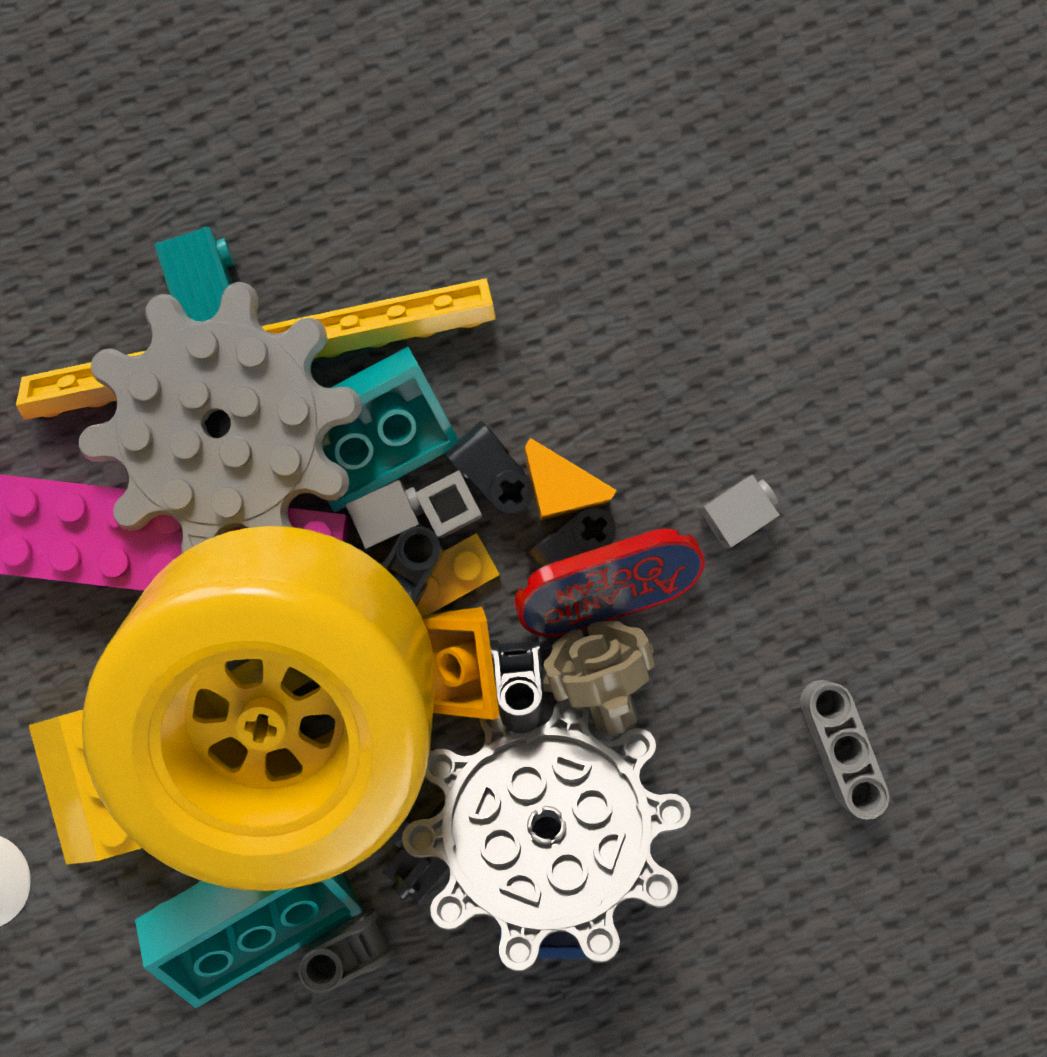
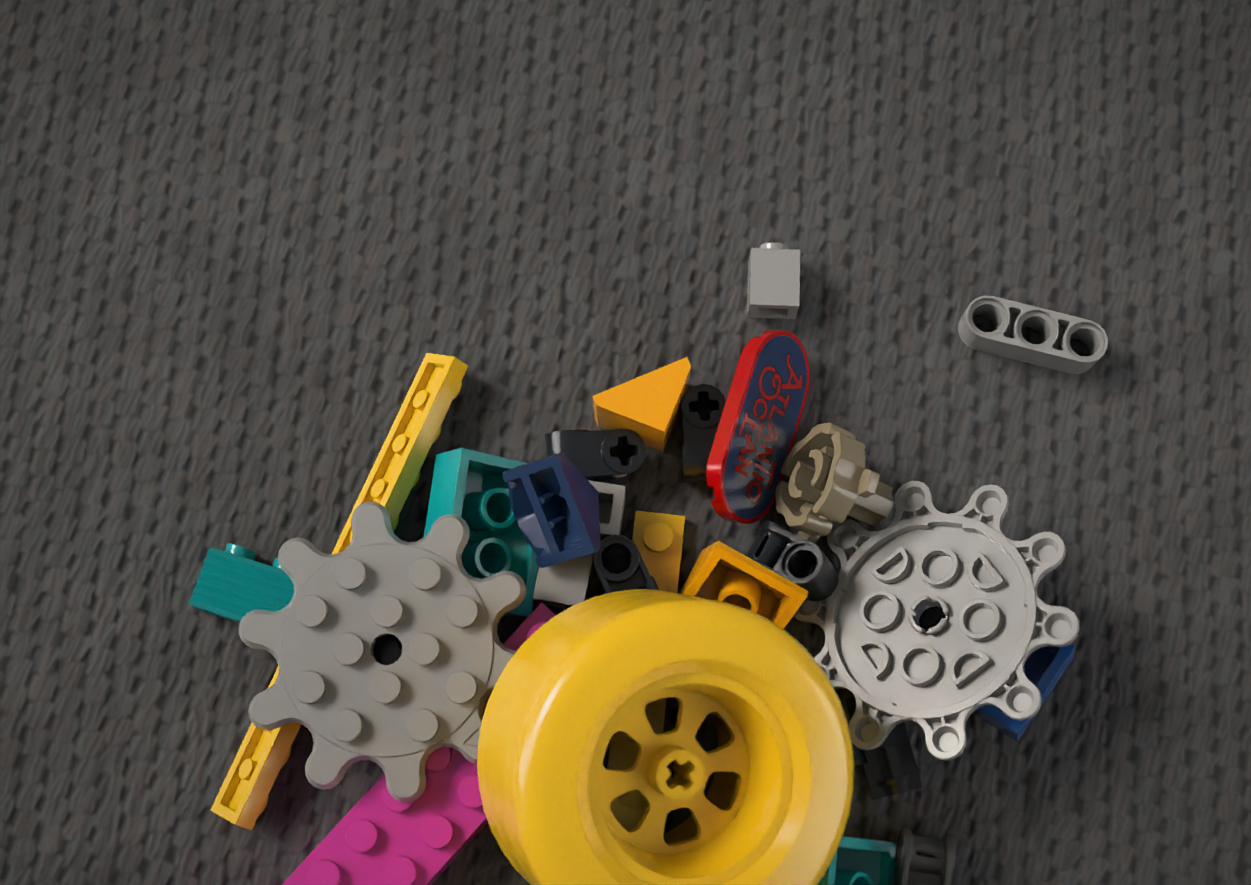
camera: 45 degrees left, 10 degrees down
(420, 475) = (555, 509): none -> dark blue slope

